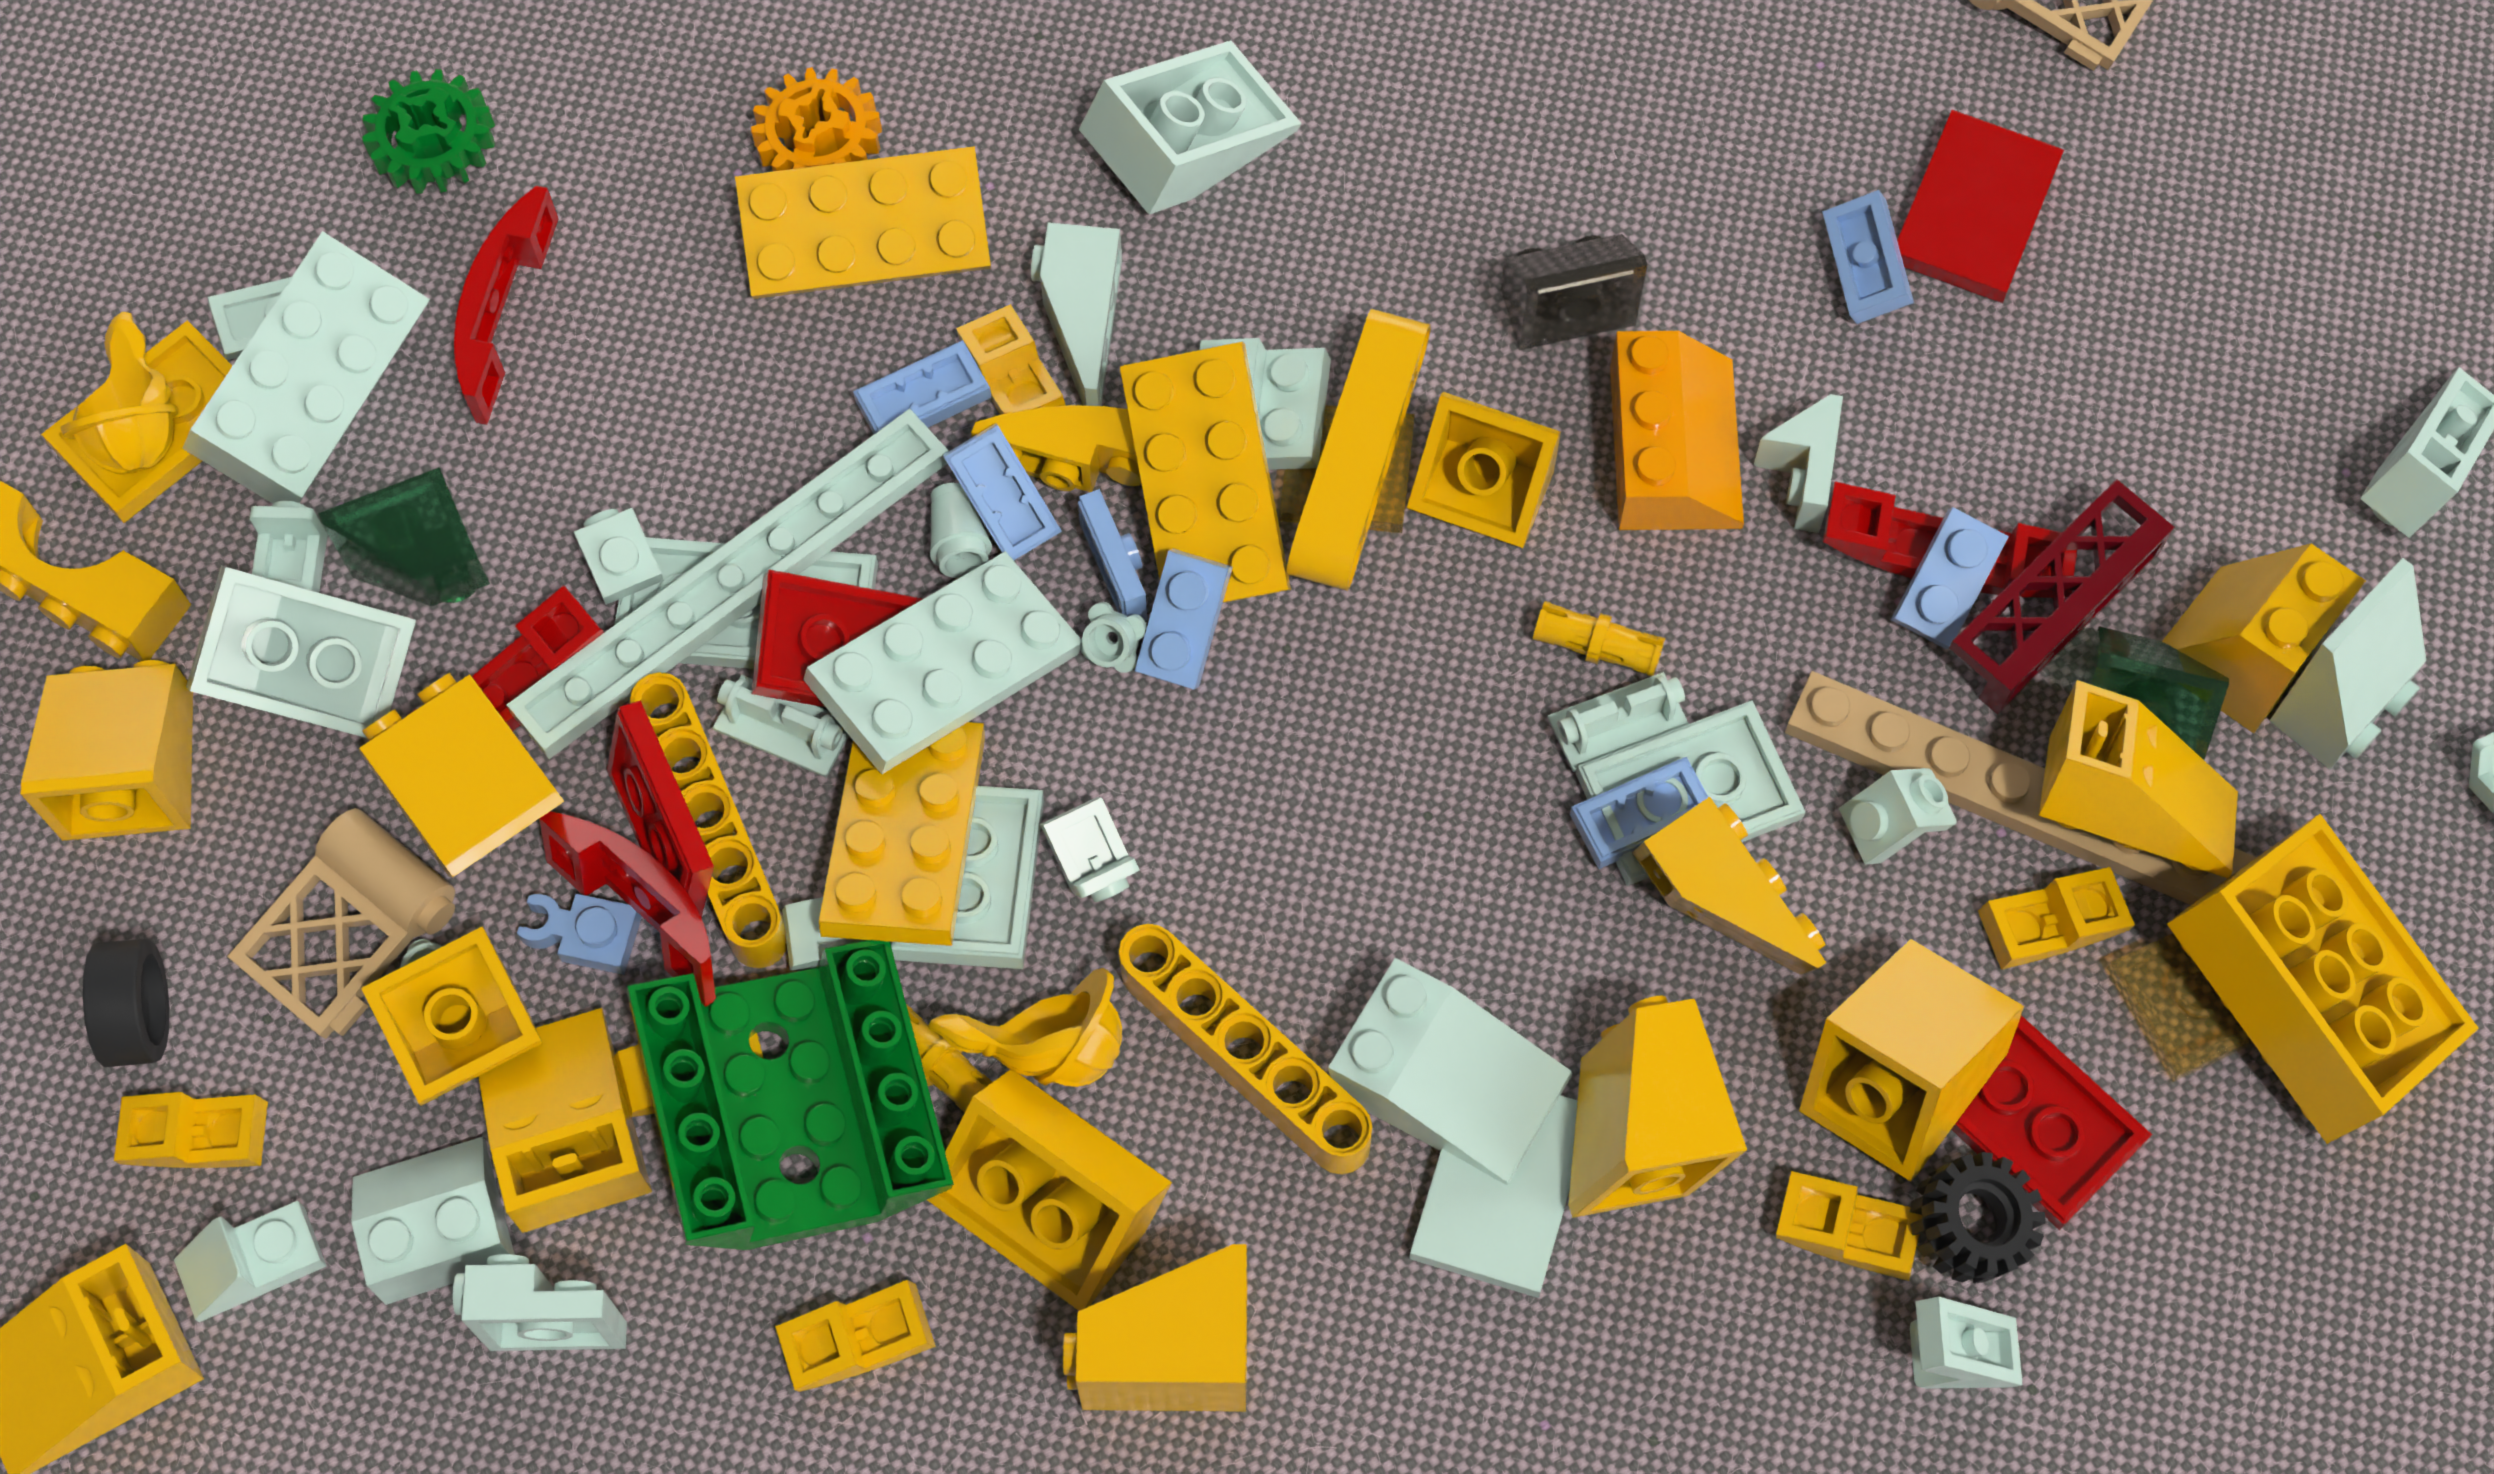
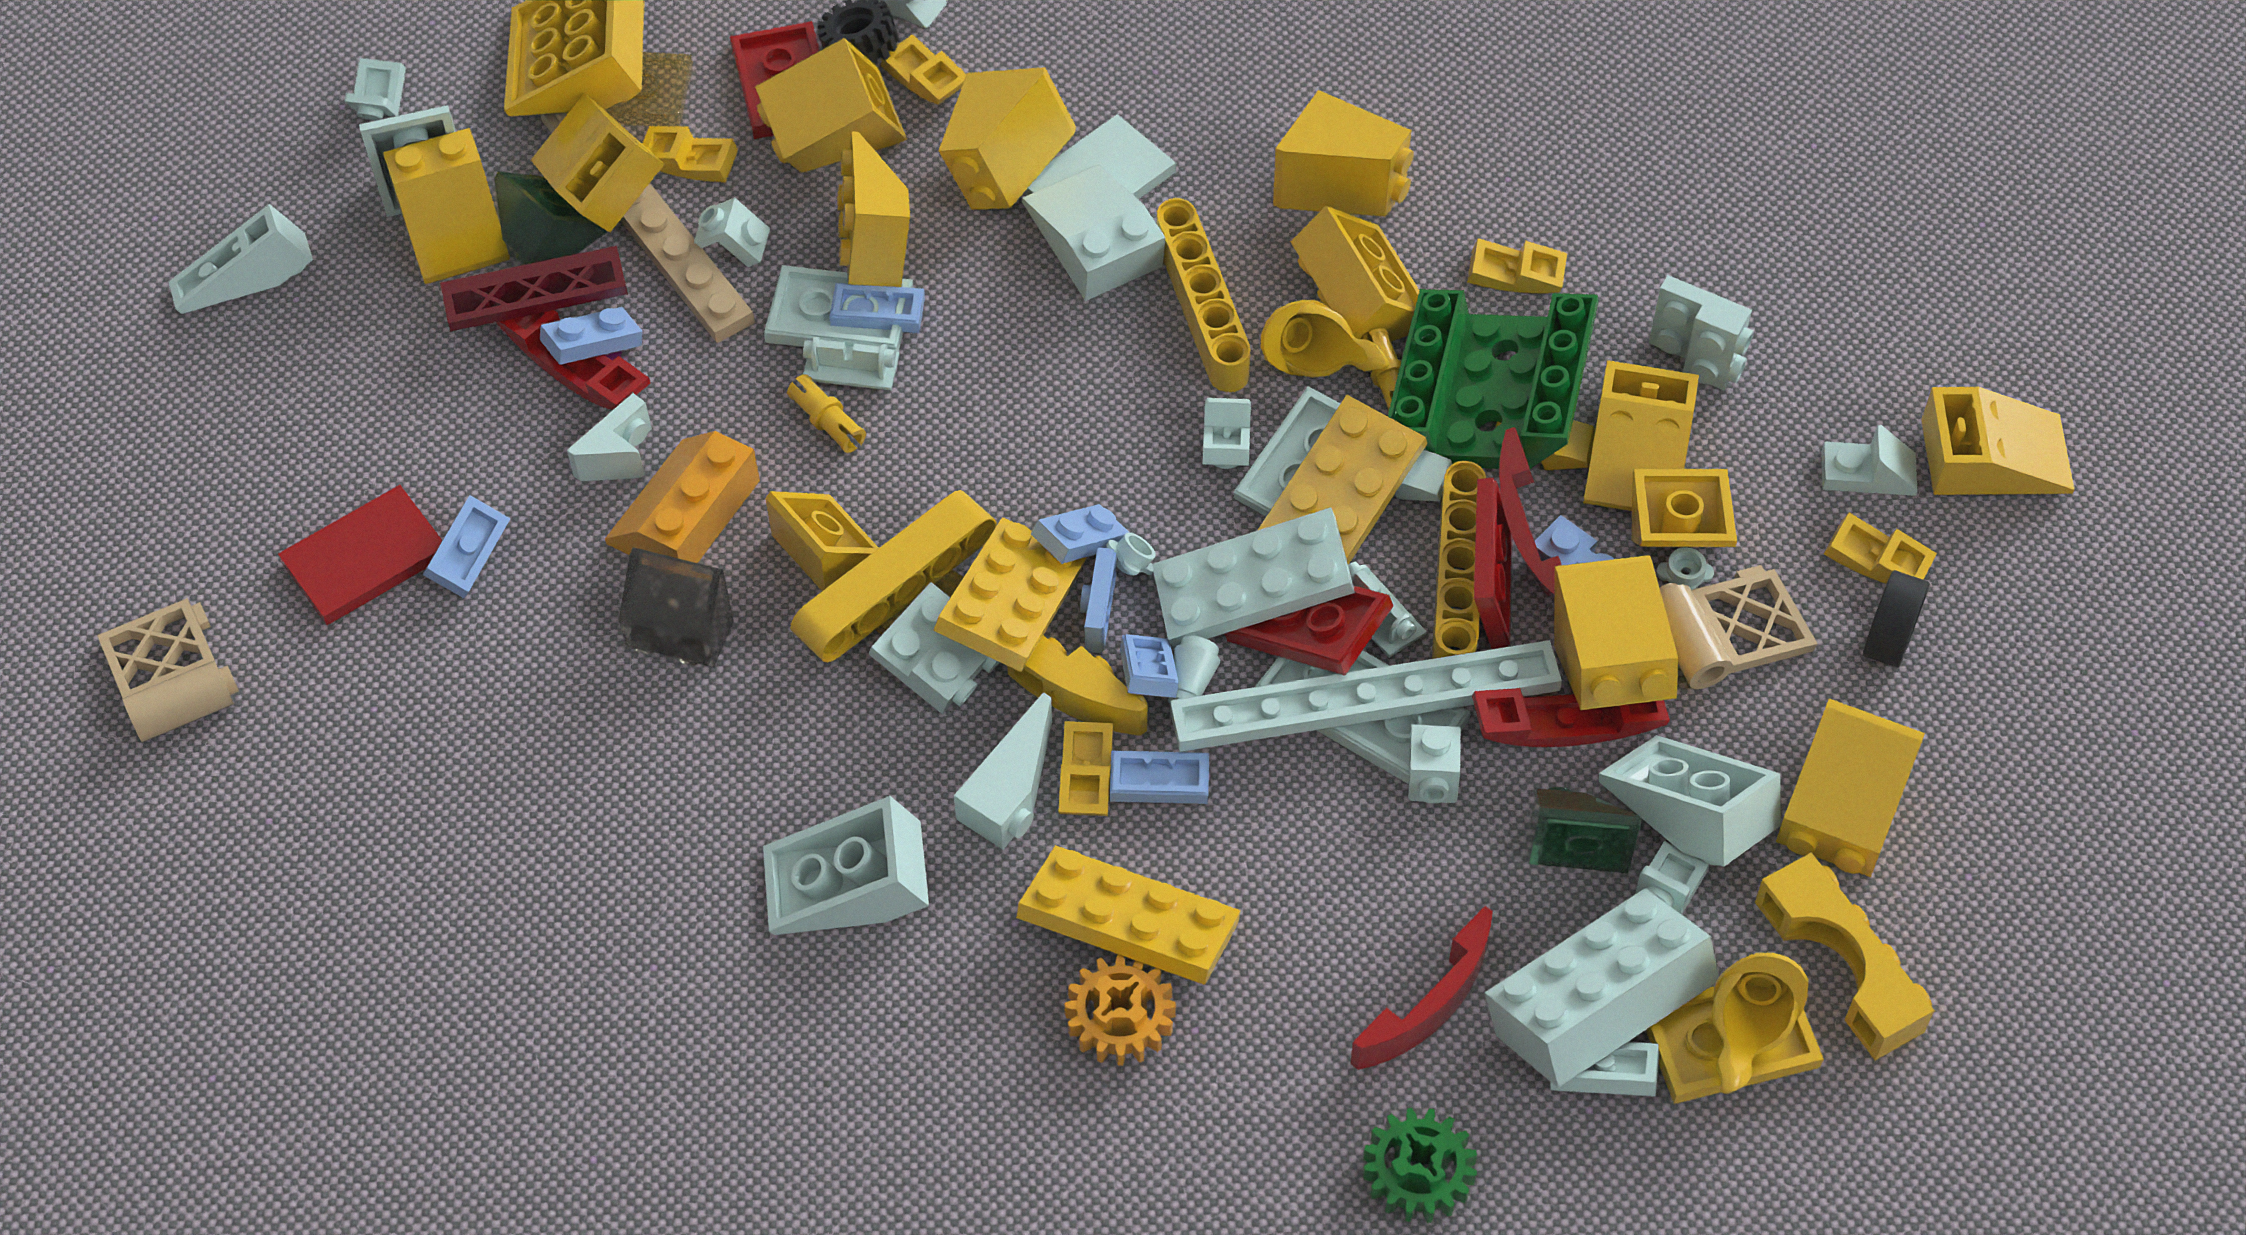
camera: 150 degrees left, 10 degrees down
(428, 1220) = (1747, 427): light aqua slope -> none

